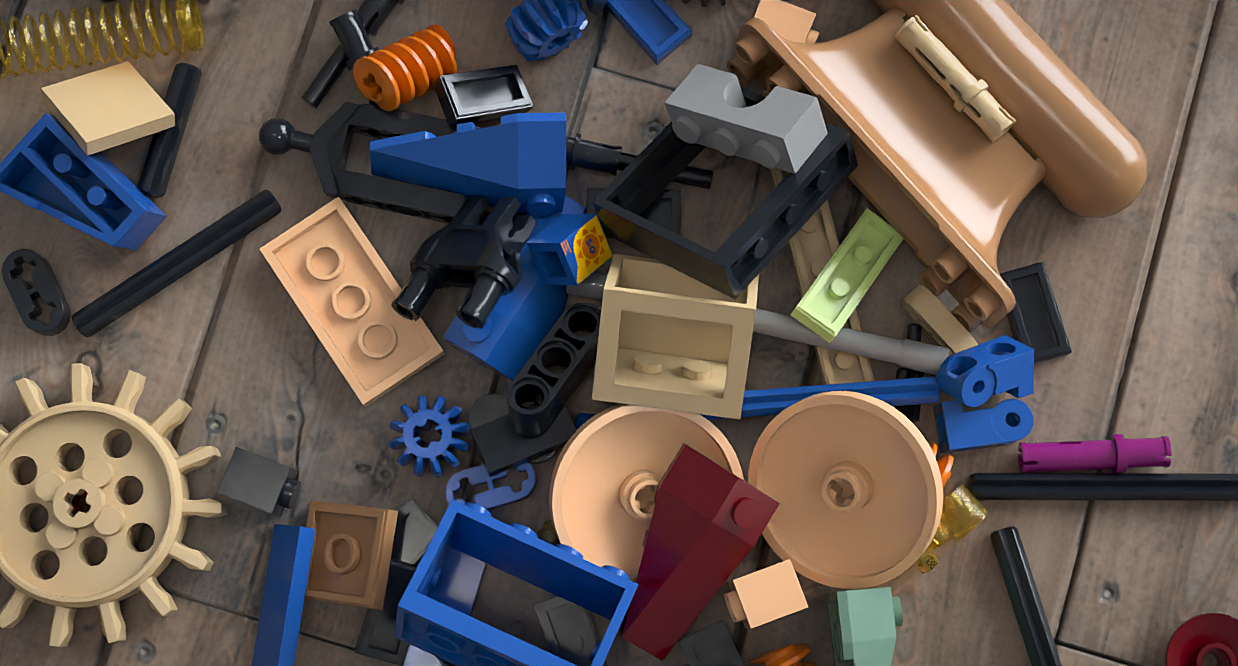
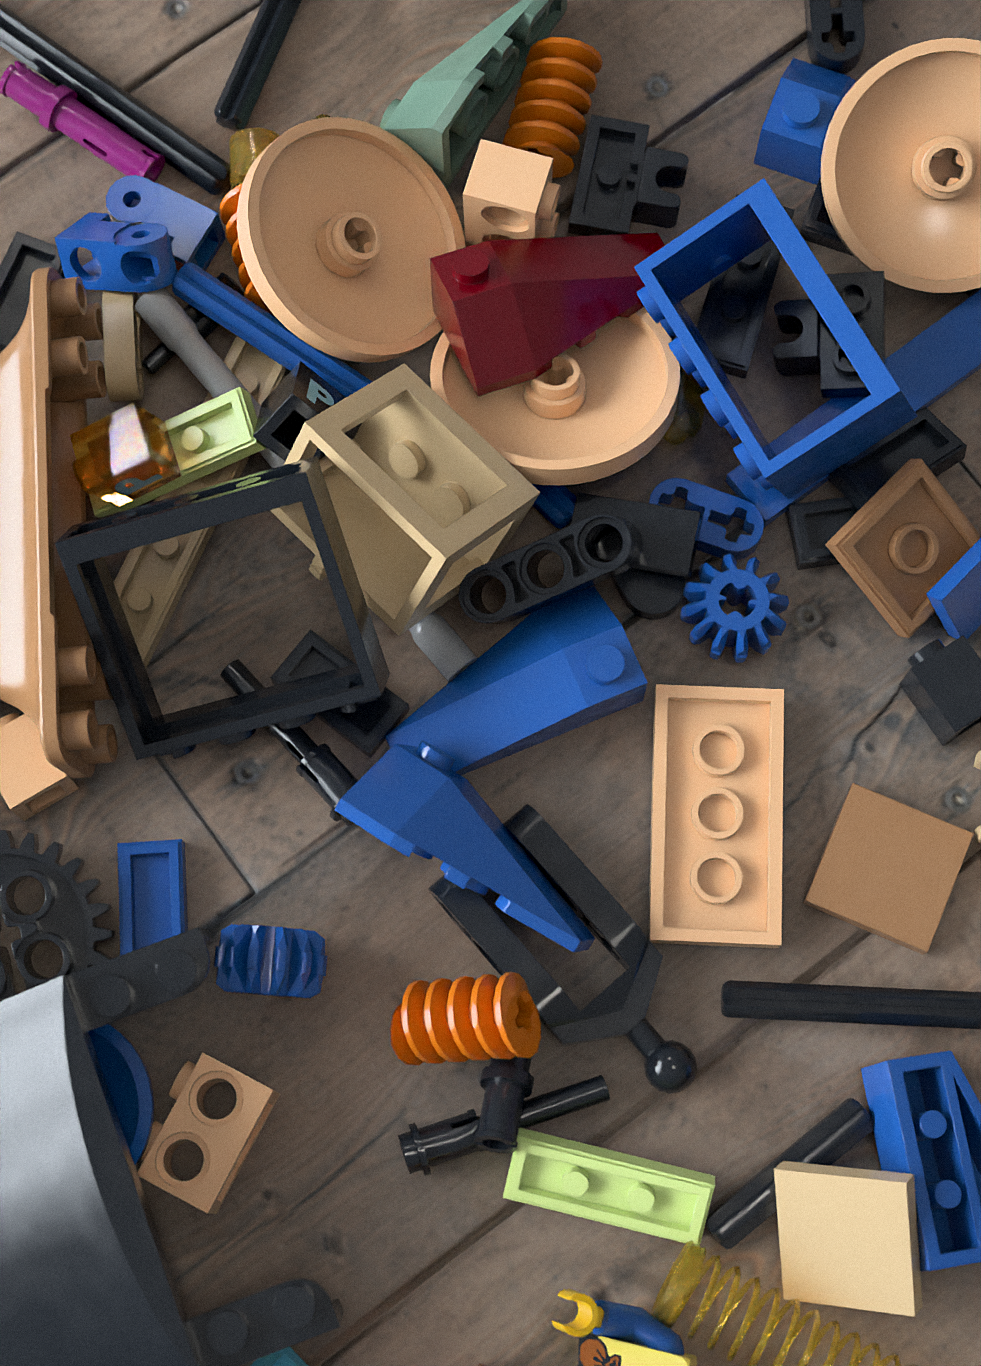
camera: 145 degrees left, 5 degrees down
(228, 347) = (888, 868): none -> medium nougat tile
(266, 48) = (609, 1186): none -> yellowish green tile
(469, 256) = (555, 749): black connector -> none
(482, 94) = (405, 933): black tile -> none
(570, 249) = (440, 682): blue brick -> none
(775, 132) = (135, 596): light grey arch -> none
(784, 349) = (290, 405): none -> black brick
(870, 242) = (124, 455): none -> clear orange brick

